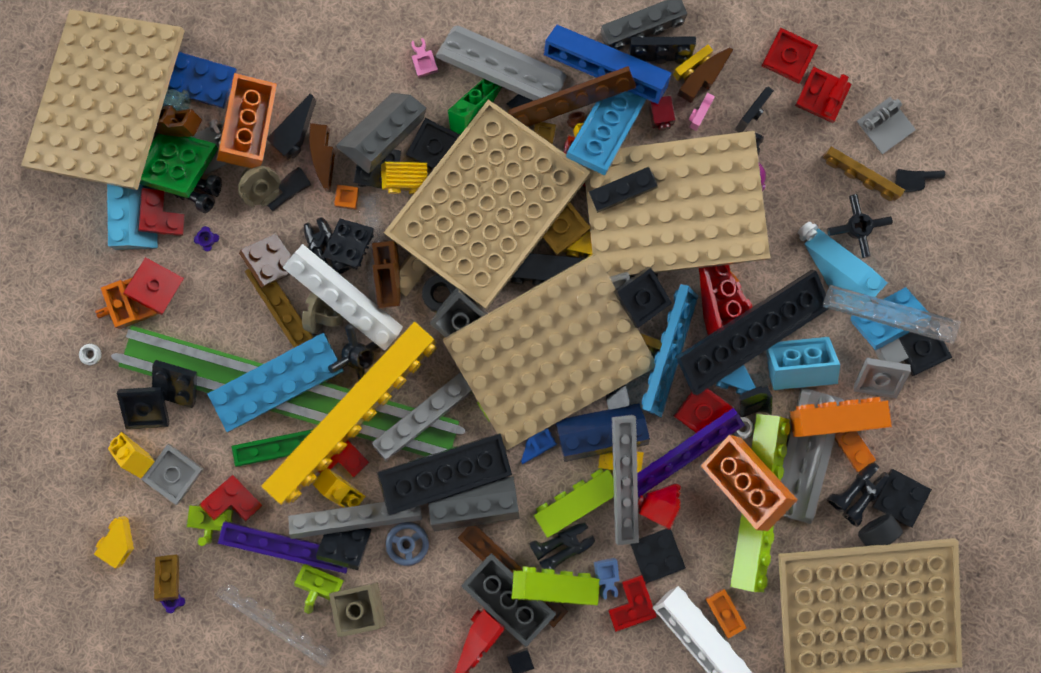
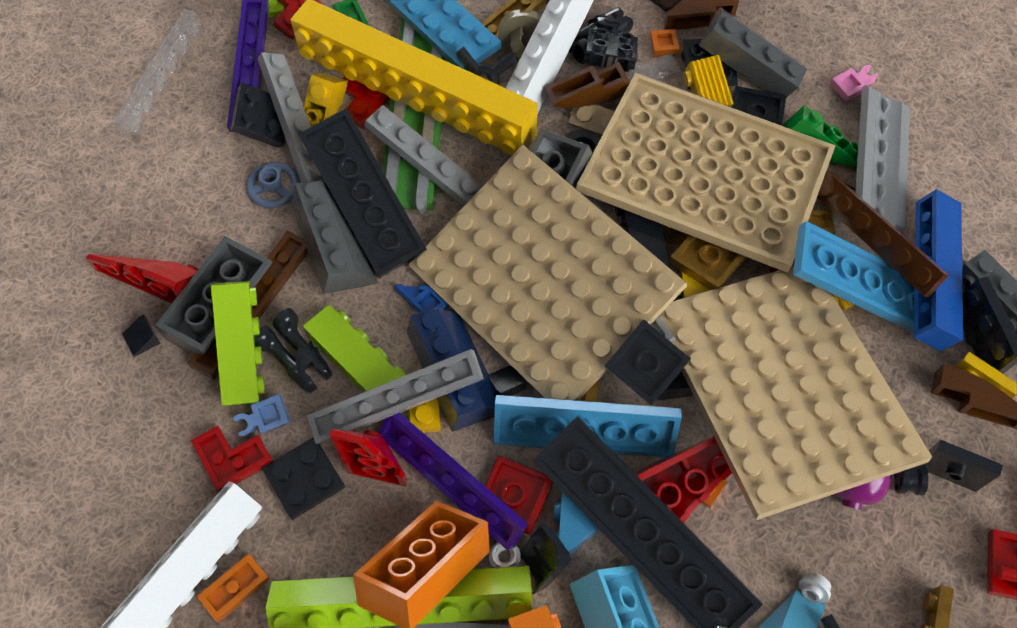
camera: 75 degrees right, 20 degrees down
(317, 584) = (211, 103): lime plate -> none
(357, 609) = (185, 144): dark tan slope -> none
(623, 189) = (783, 310): black plate -> none
(662, 114) = (902, 353): dark red brick -> none
(698, 115) = (921, 402): bright pink plate -> none

